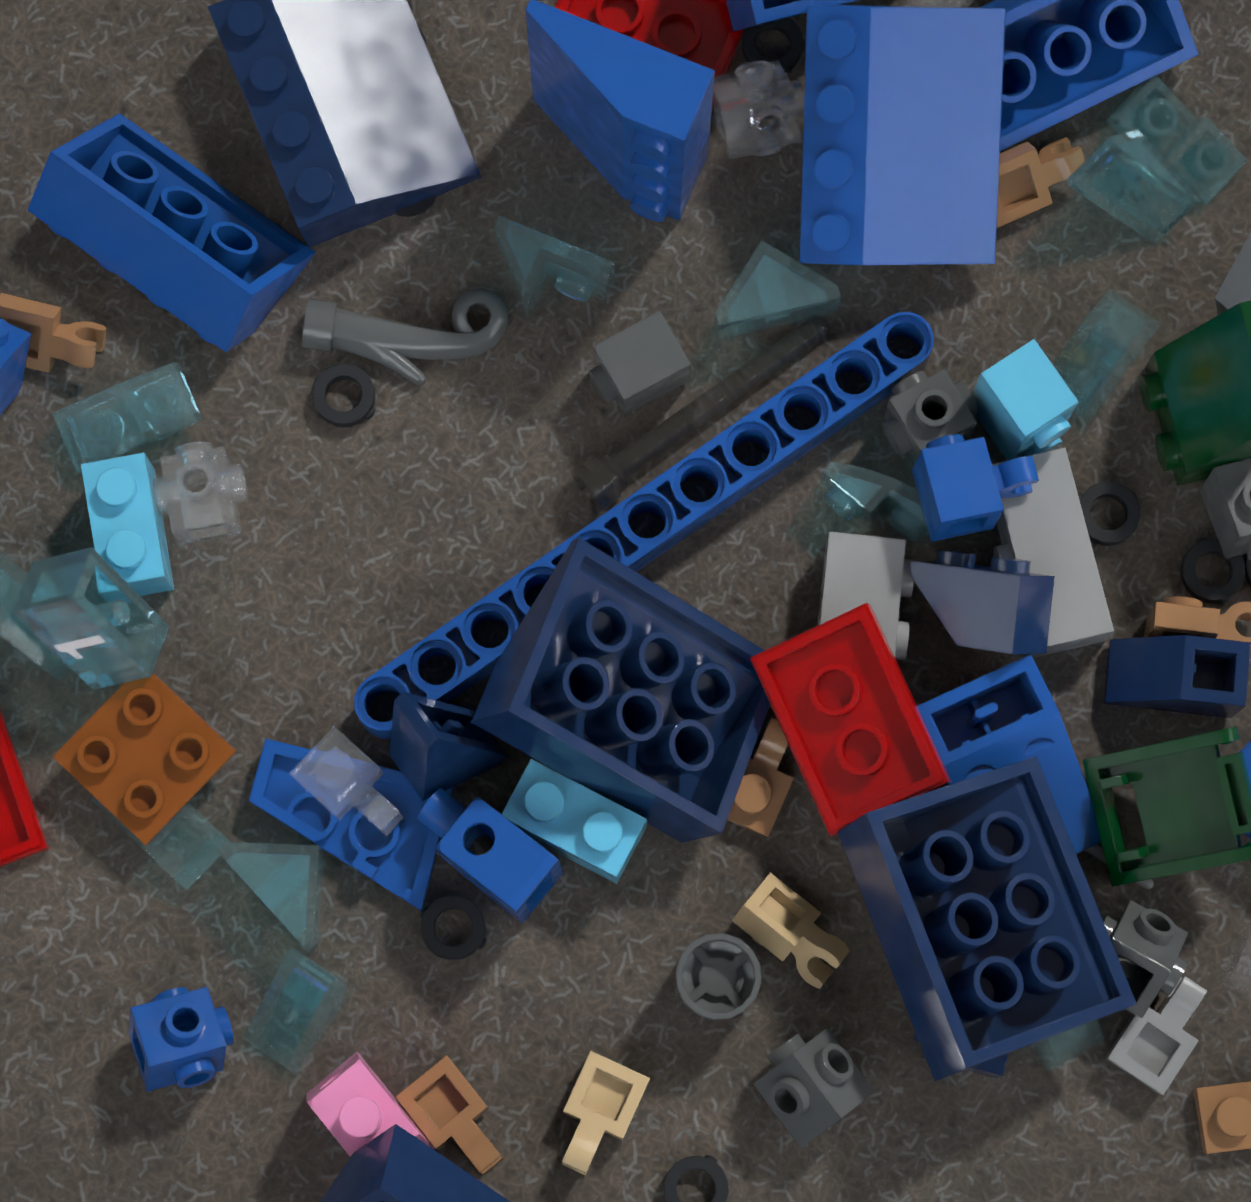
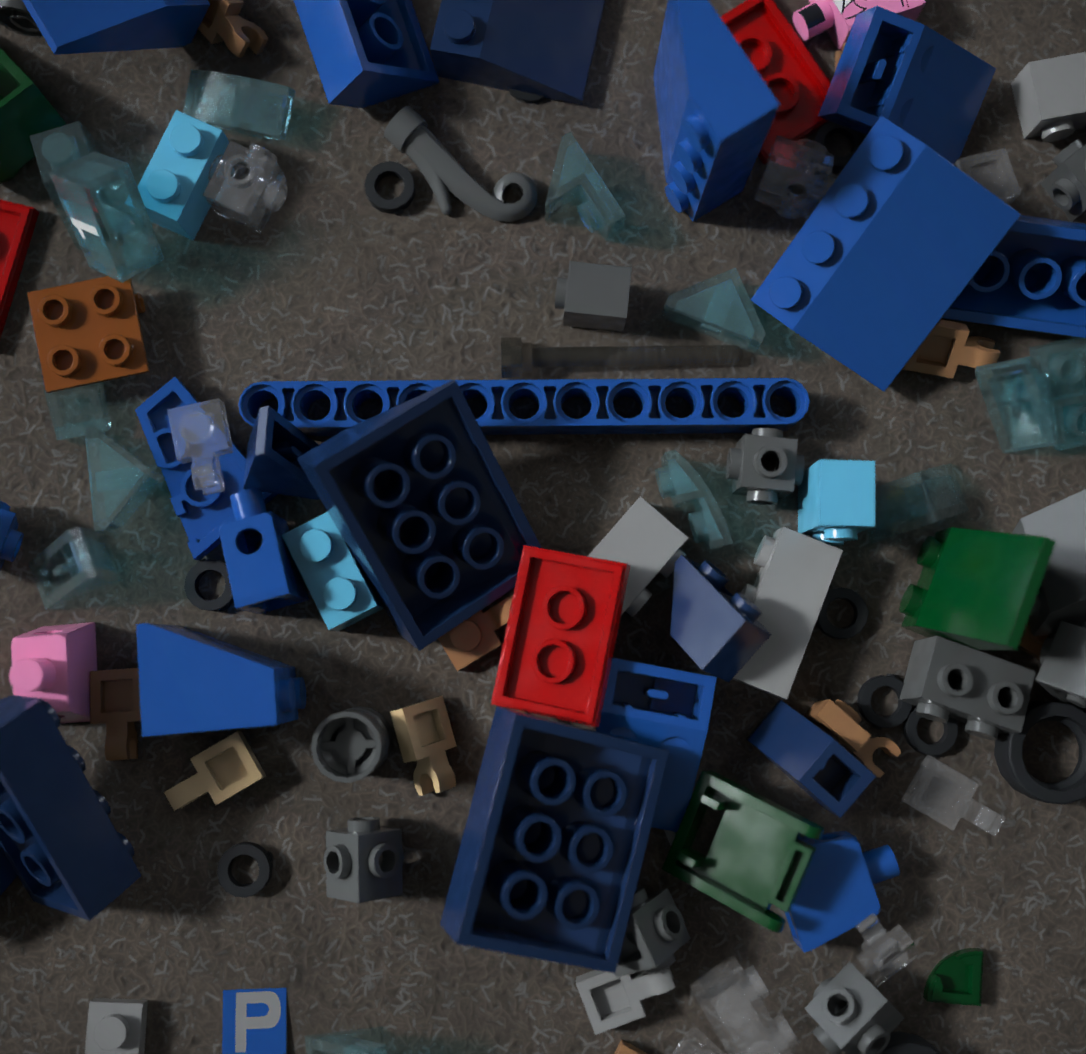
camera: 35 degrees right, 5 degrees up
(540, 1011) = (210, 685): none -> blue slope
(963, 489) = (752, 530): blue brick -> none

